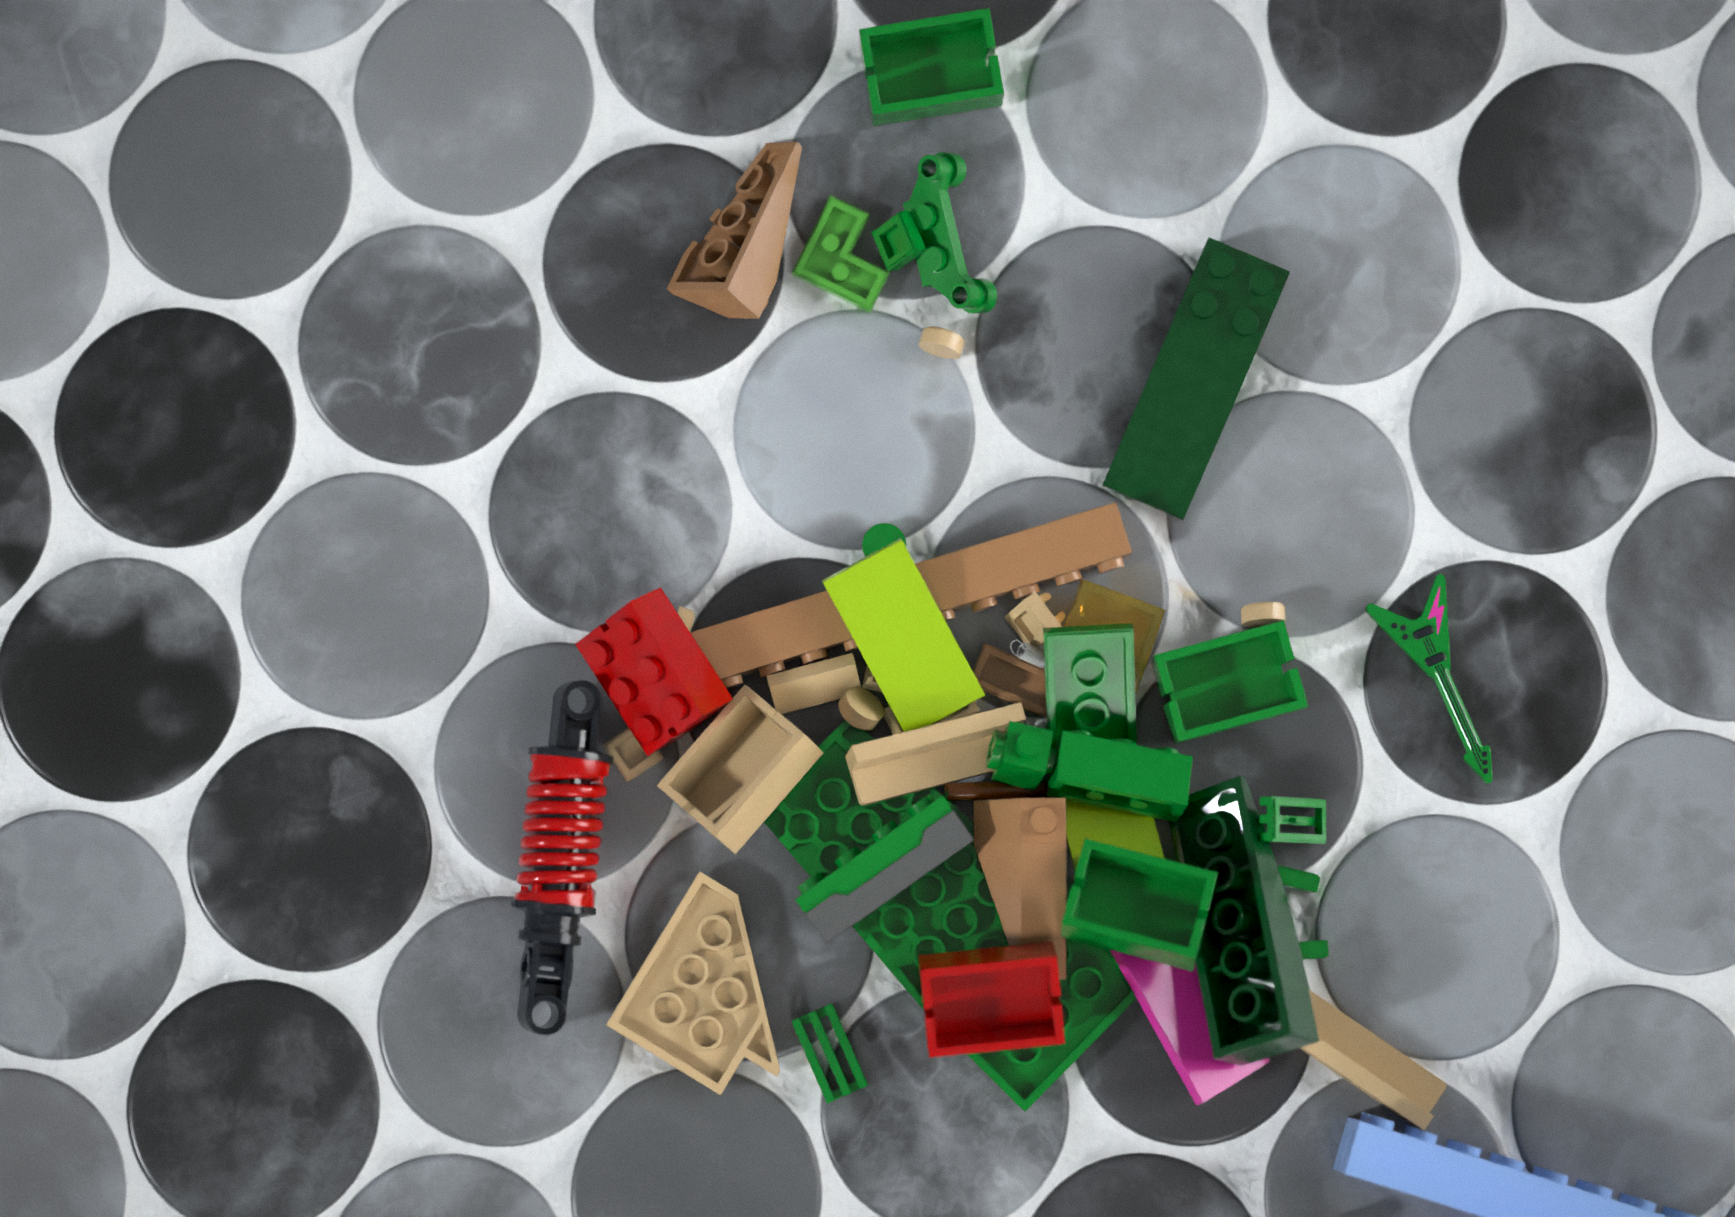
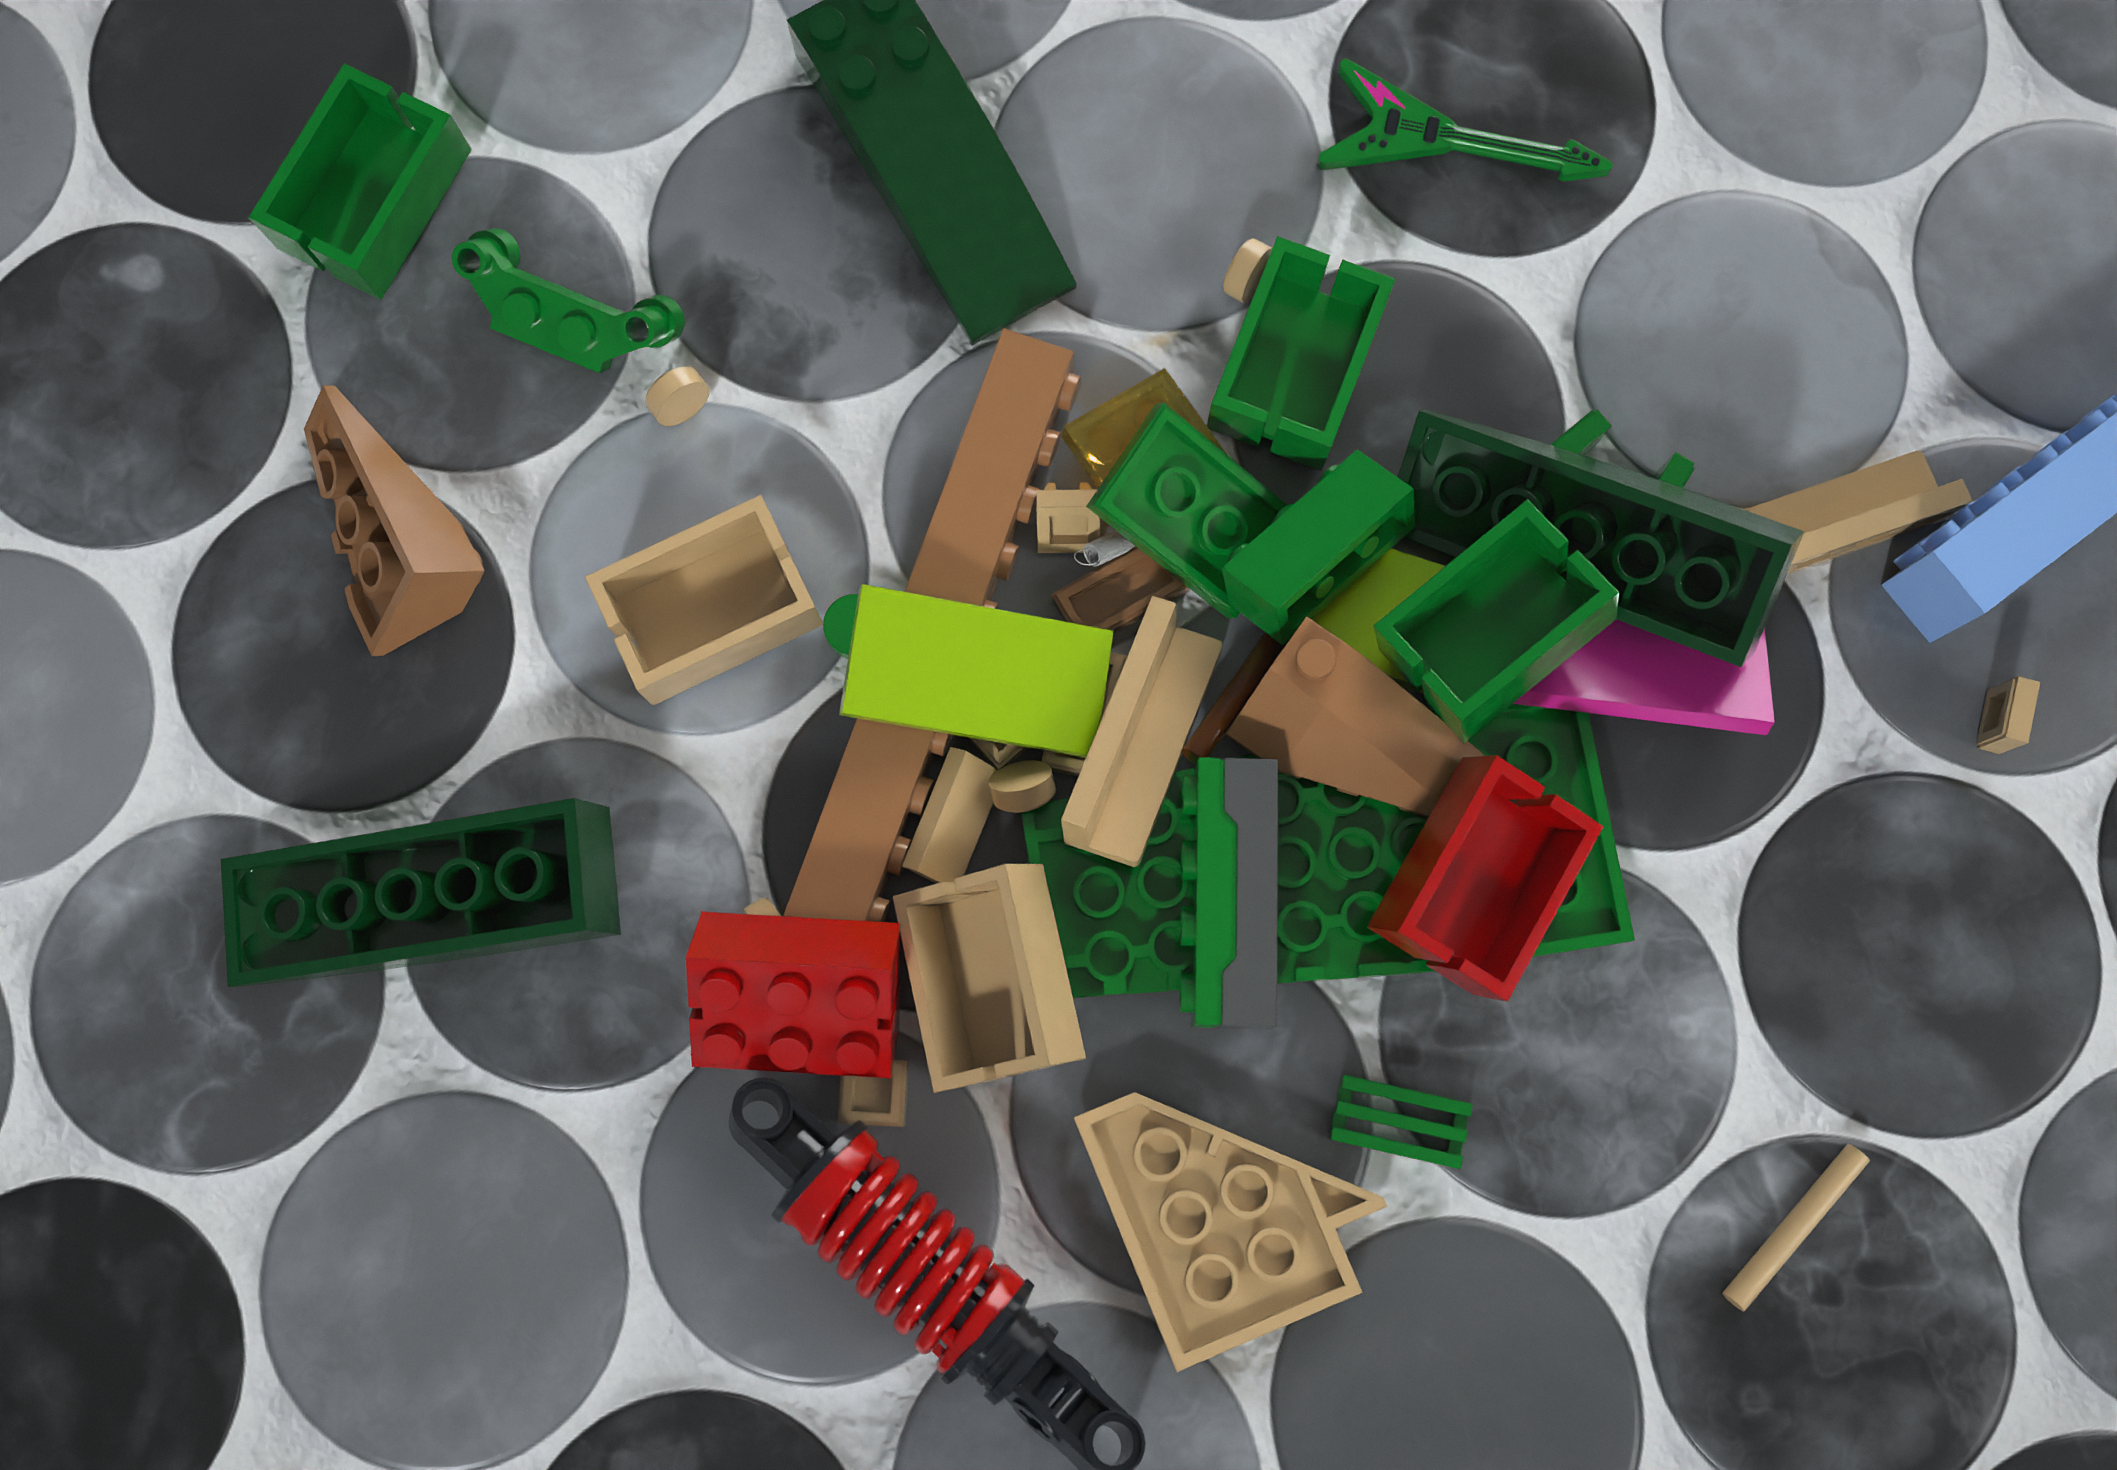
camera: 50 degrees left, 5 degrees down
(557, 423) = (421, 894): none -> dark green slope
(829, 259) = (494, 455): bright green tile -> none
(833, 454) = (704, 601): none -> tan piece
(898, 241) = (526, 359): green tile -> none
(1021, 755) = (1214, 638): green brick -> none
(1274, 820) = (1502, 404): green tile -> none

